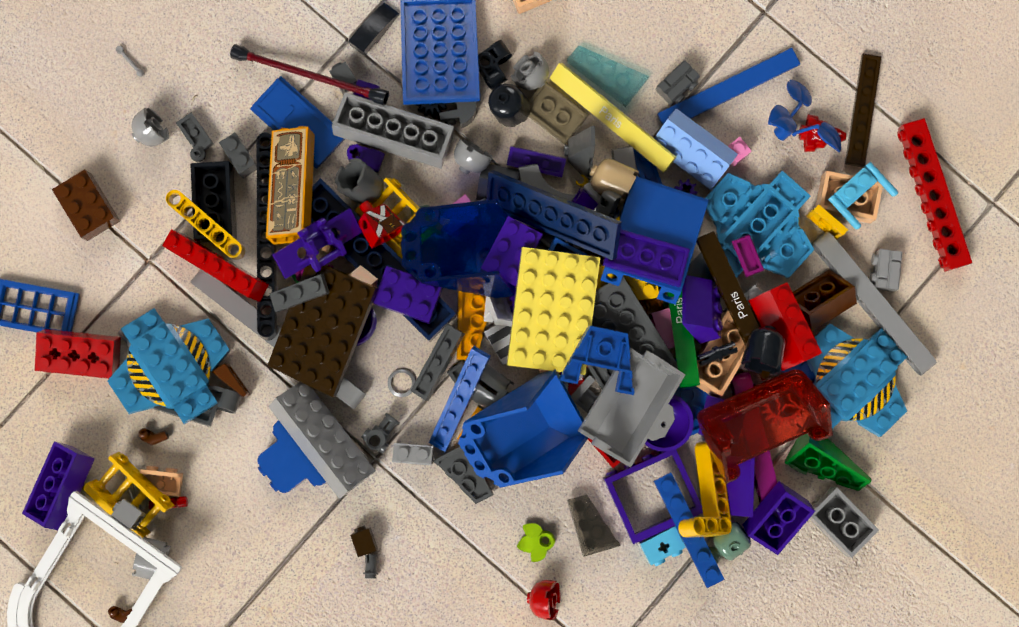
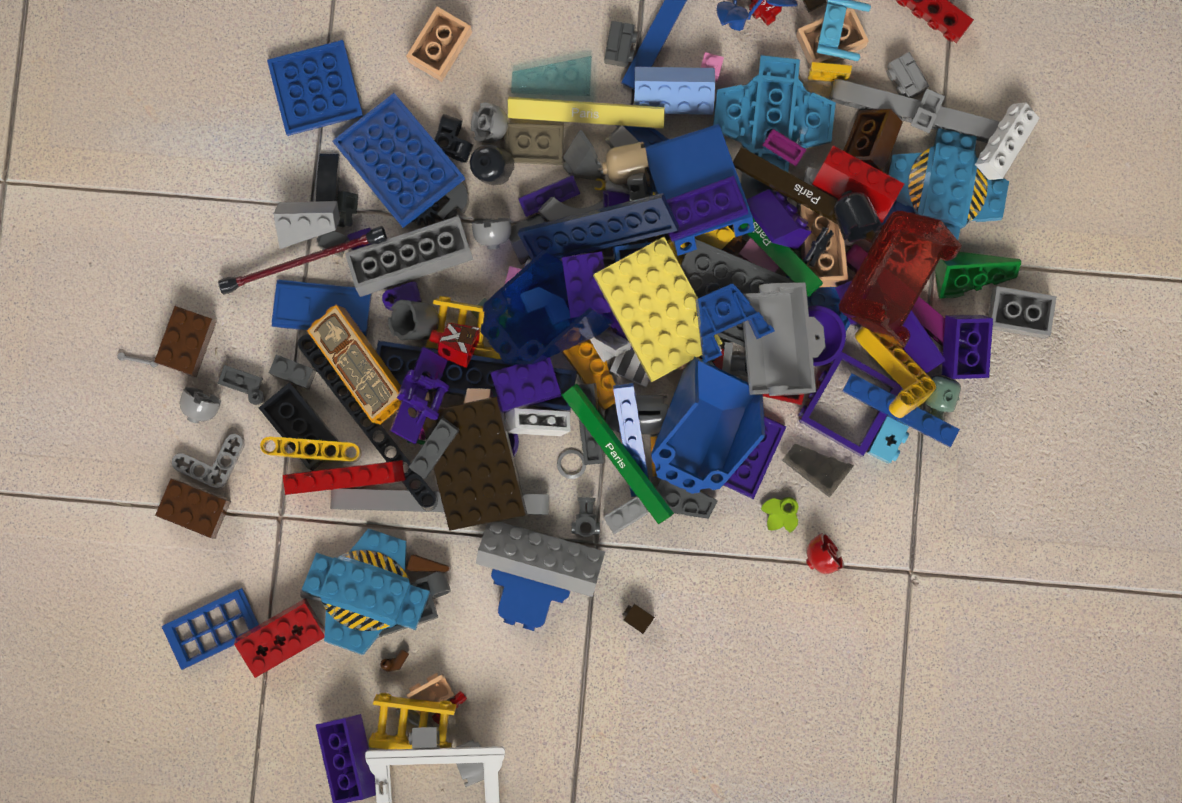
camera: 30 degrees left, 0 degrees up
(121, 186) = (210, 471): none -> light grey beam
(174, 73) = (185, 341): none -> reddish brown brick
(332, 44) = (304, 220): none -> light grey wedge
(370, 566) = (659, 635): dark grey pin -> none
(375, 58) = (347, 206): none -> pearl dark grey plate
(396, 331) = (537, 422): none -> white brick
(440, 402) = (617, 454): none -> green tile
(470, 236) = (554, 305): none -> blue tile
(536, 492) = (752, 471): none -> dark purple tile
(685, 185) = (689, 125): dark purple gear -> none
(883, 308) = (927, 110): none -> light grey slope
(929, 378) = (1007, 141): none -> white brick

